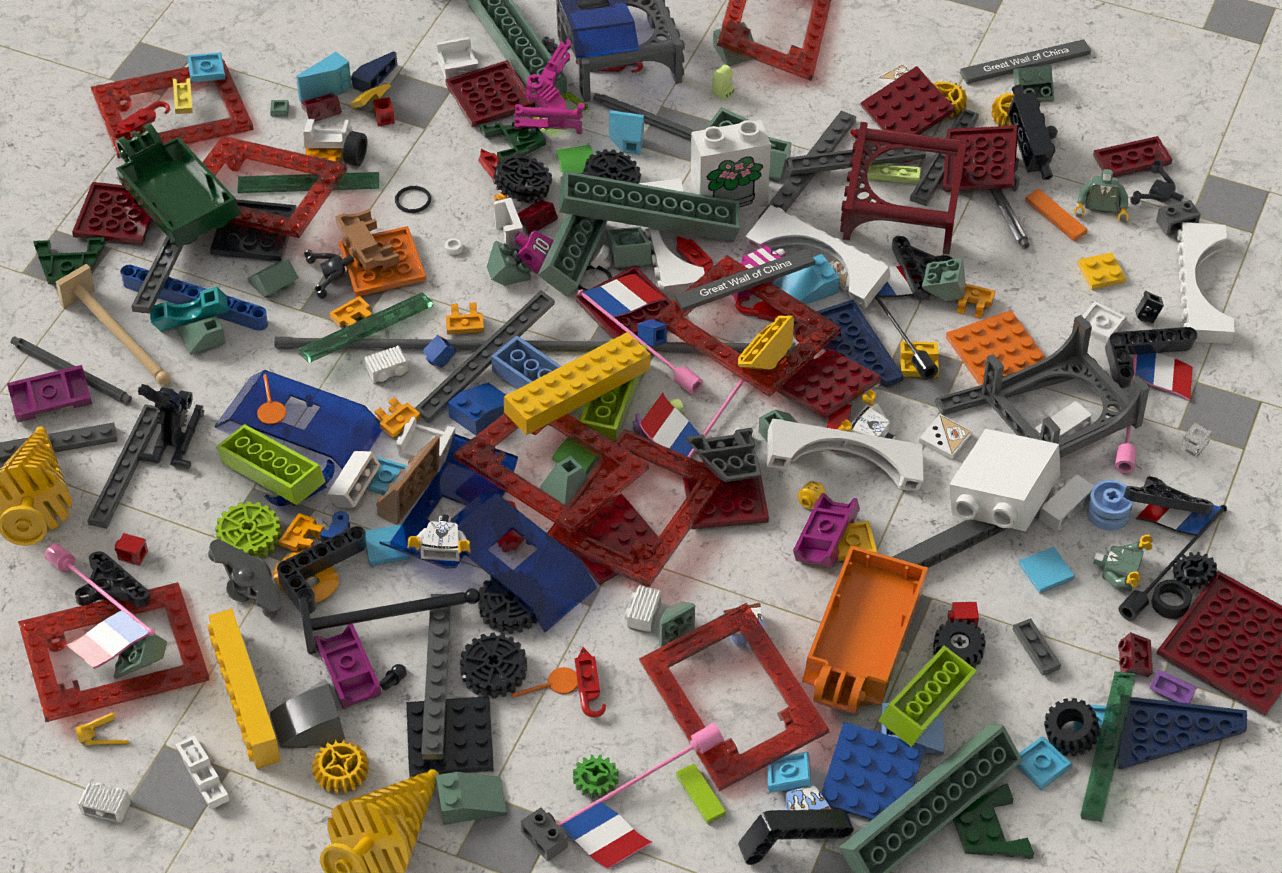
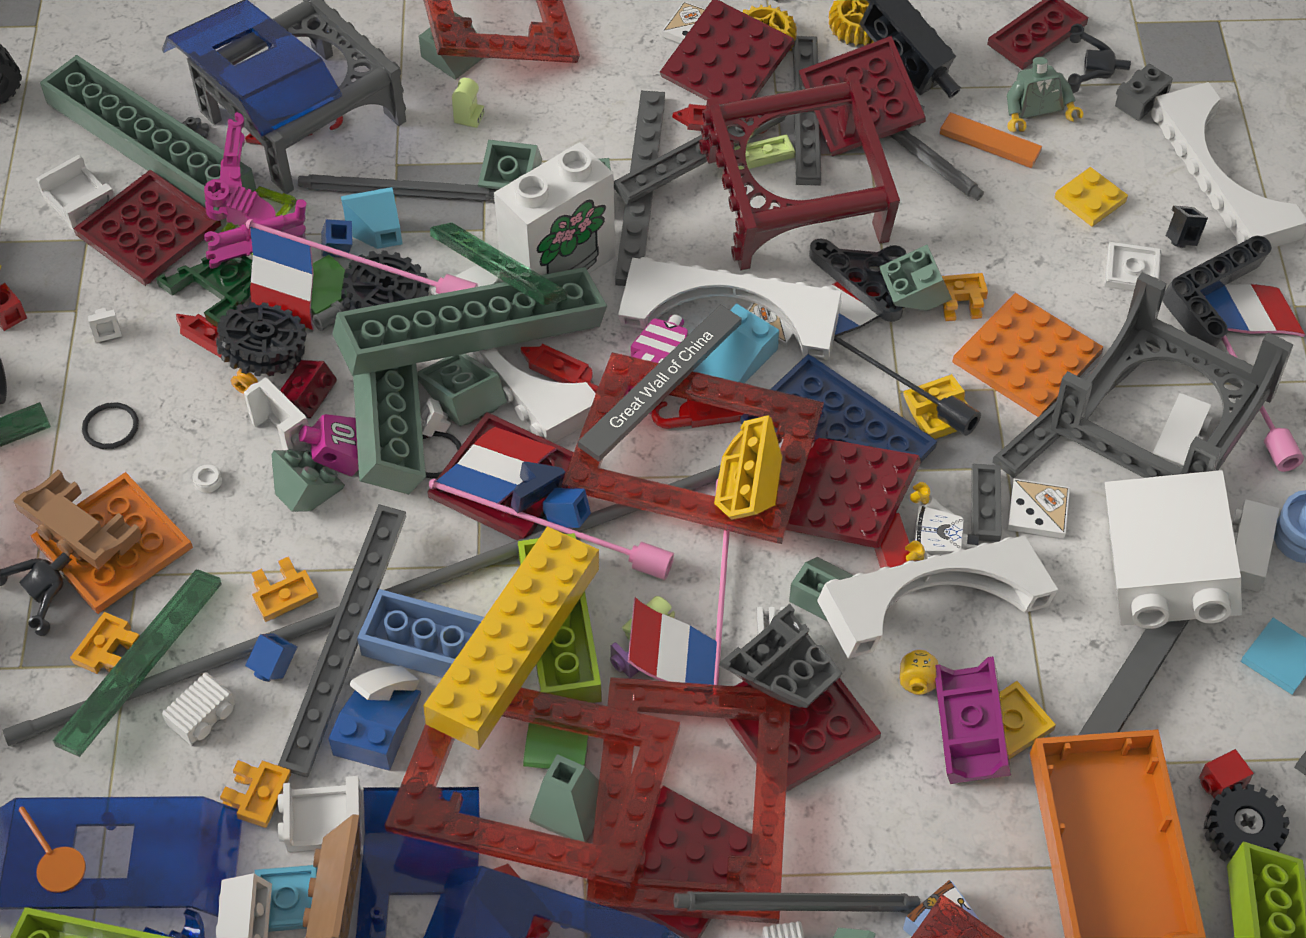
camera: 25 degrees left, 5 degrees up
(436, 141) = (104, 325): none -> white tile
(493, 385) = (383, 681): none -> white slope
(555, 144) = (285, 274): none -> flag
(598, 136) = (337, 235): none -> blue brick
(639, 313) = (537, 484): none -> dark blue slope
(661, 577) = (795, 901): none -> dark grey piece
(684, 180) = (499, 264): none -> clear green tile
(914, 419) = (986, 502): none -> dark grey plate

